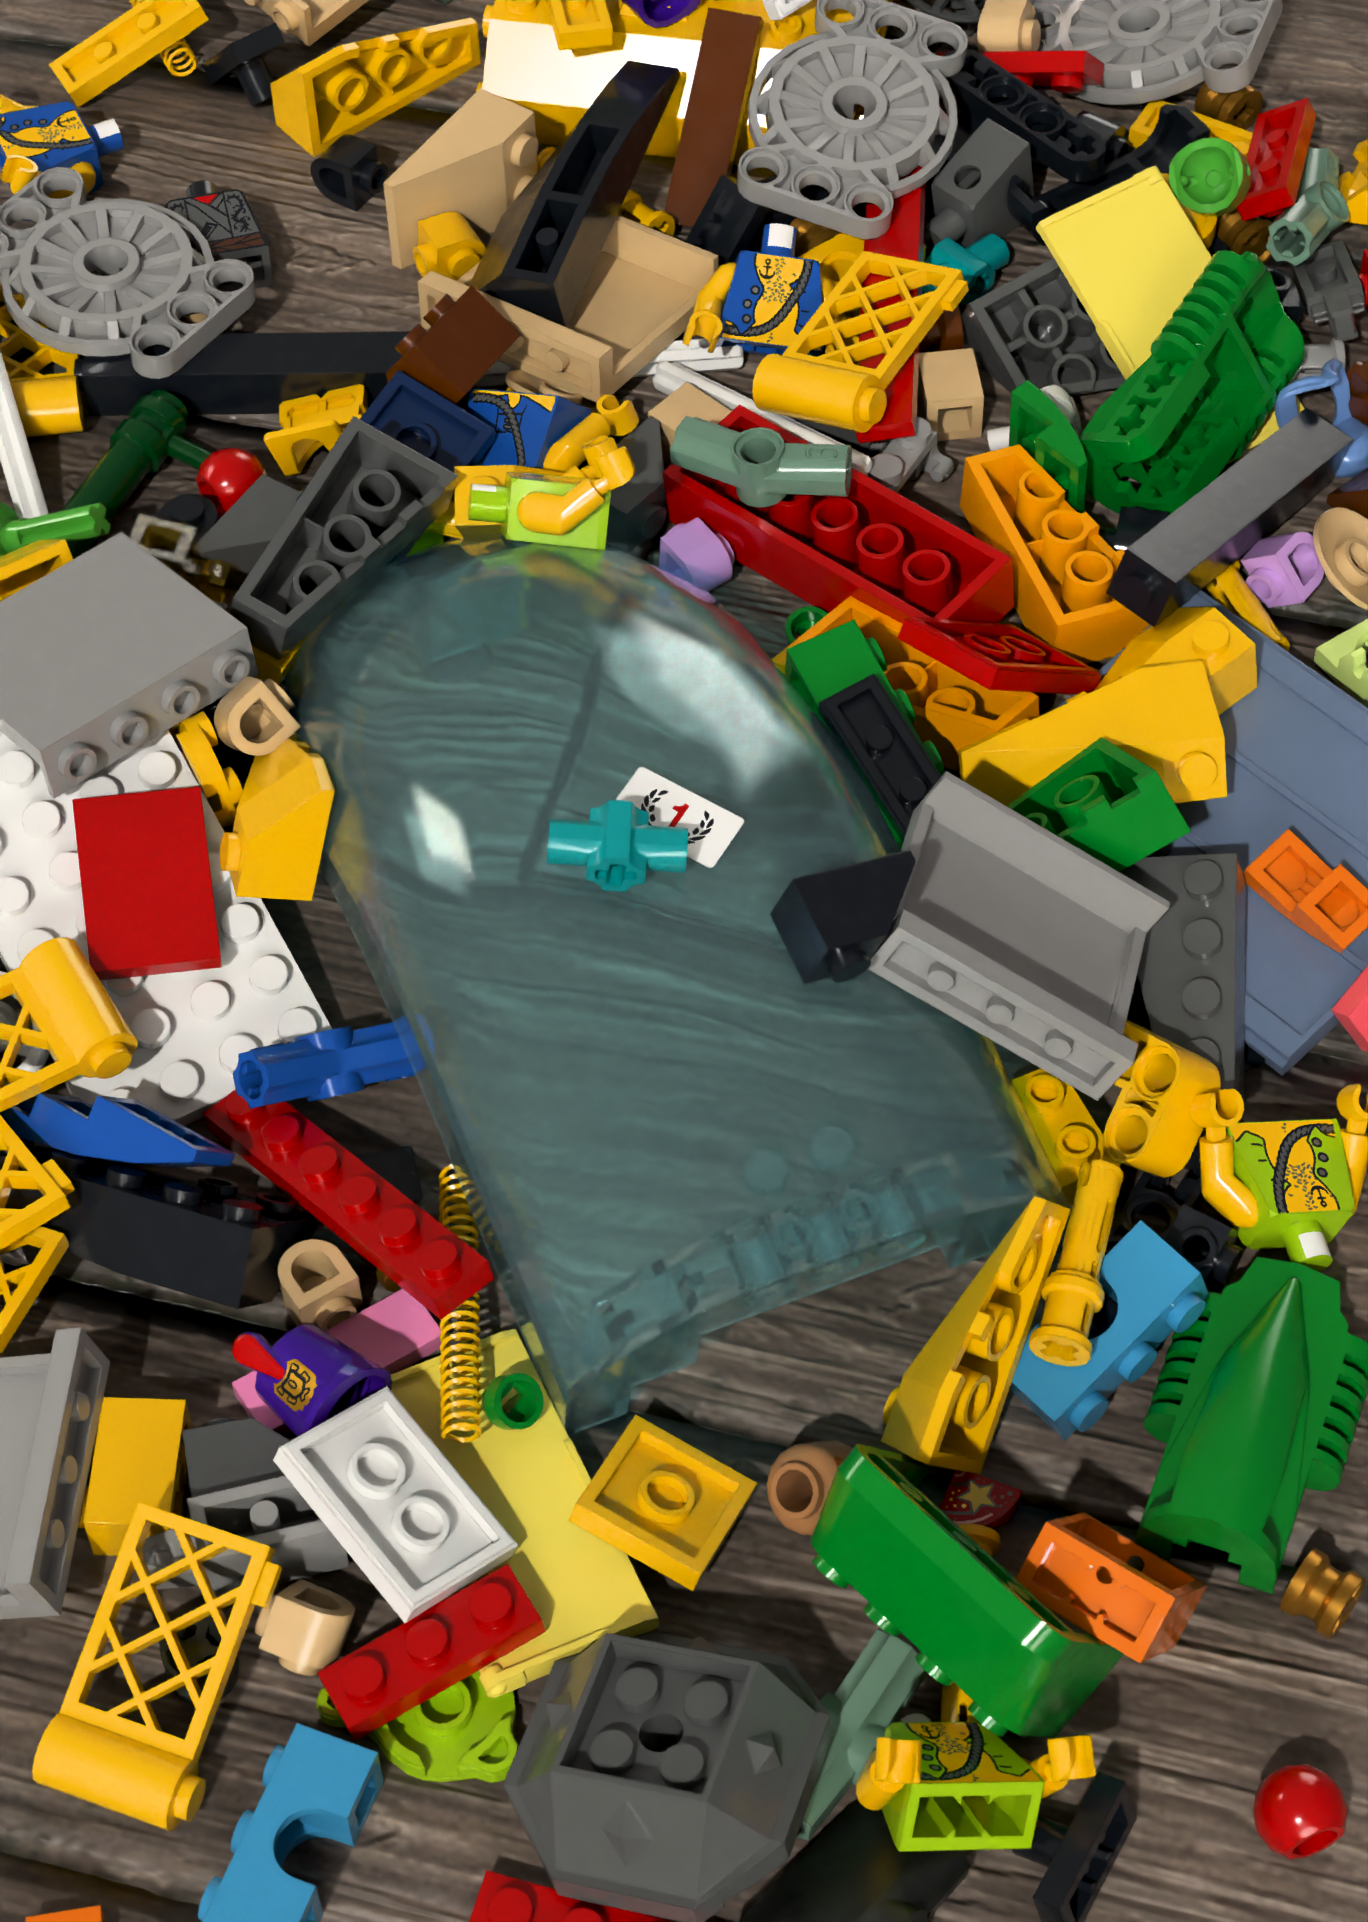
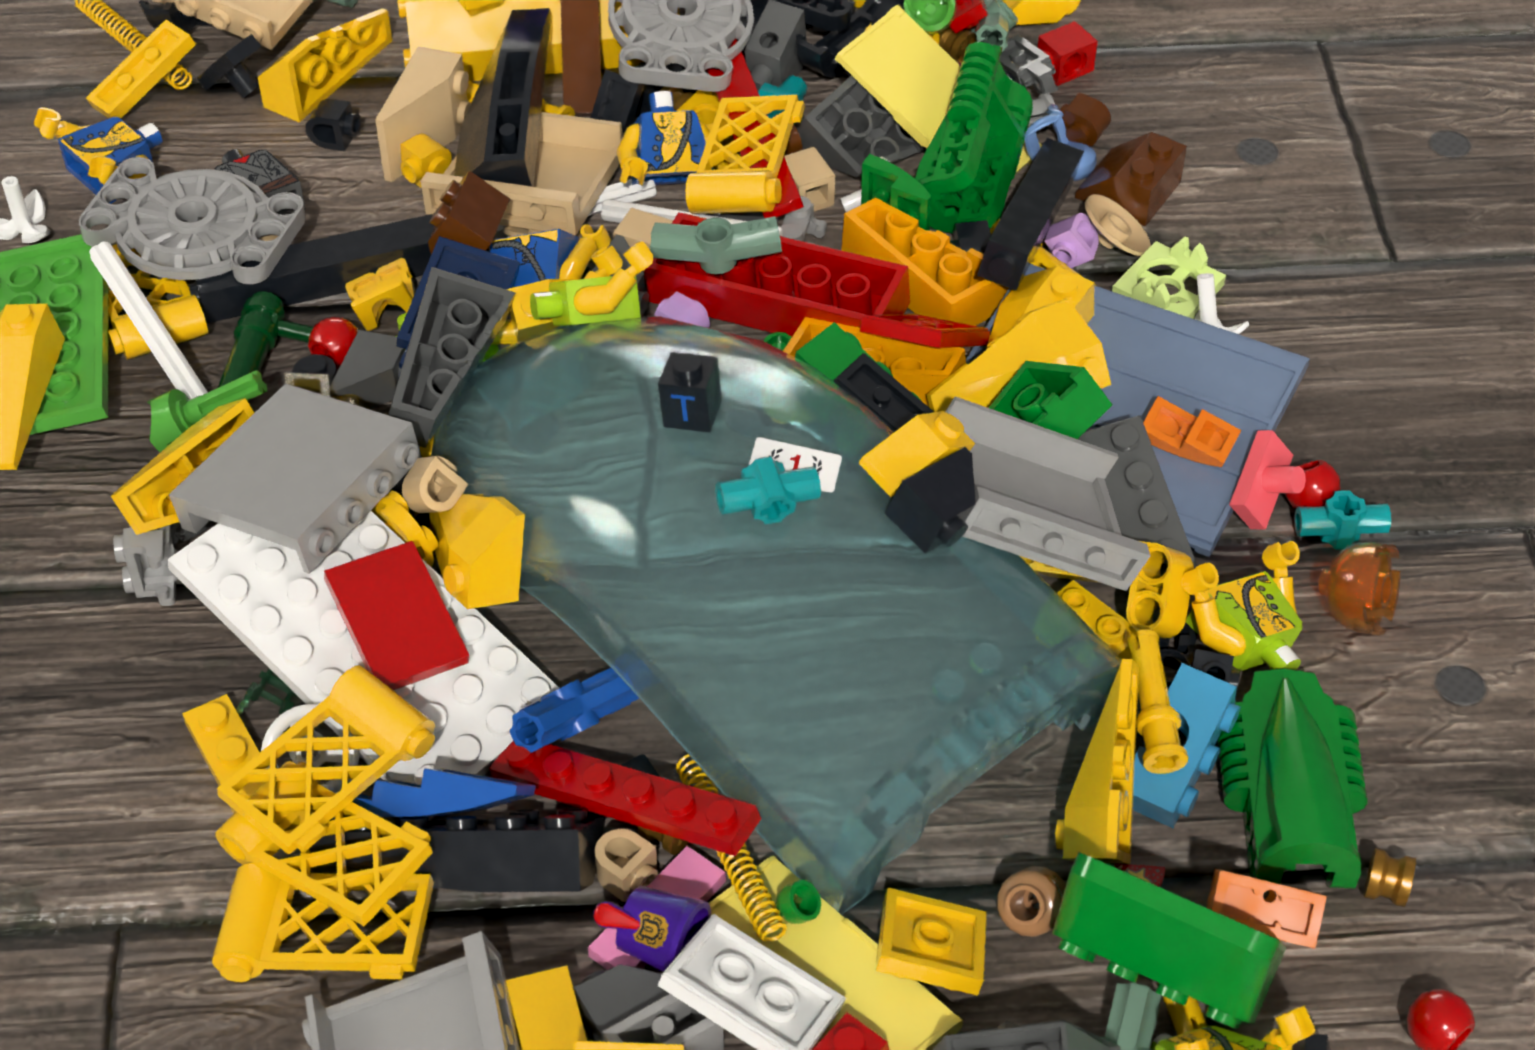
camera: 20 degrees left, 5 degrees down
(571, 683) = (690, 392): none -> black brick
(843, 833) = (914, 448): none -> yellow slope

